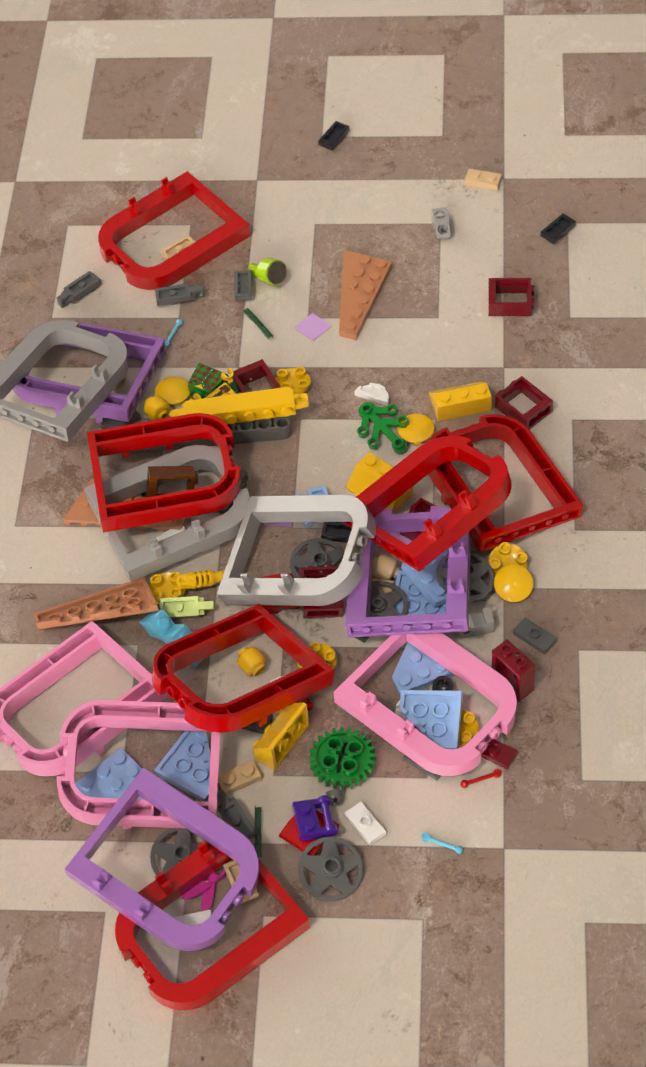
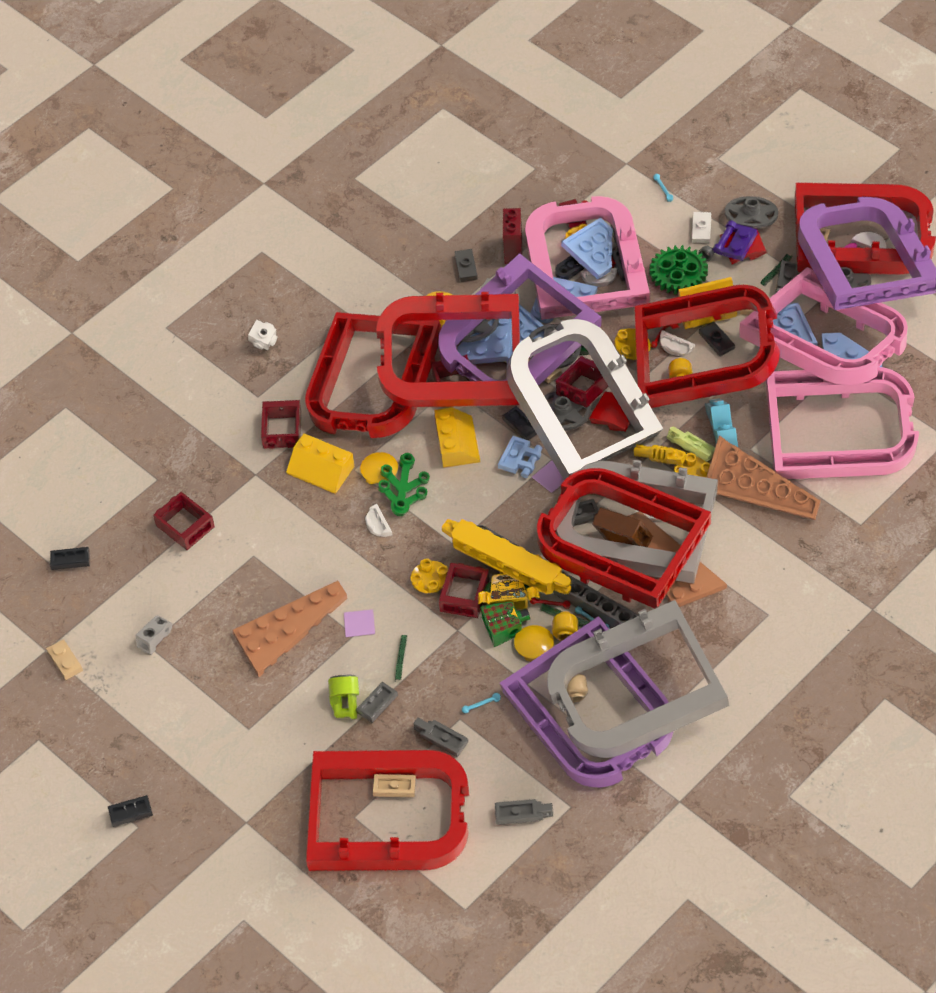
camera: 140 degrees left, 0 degrees up
(620, 452) = (262, 335): none -> white brick

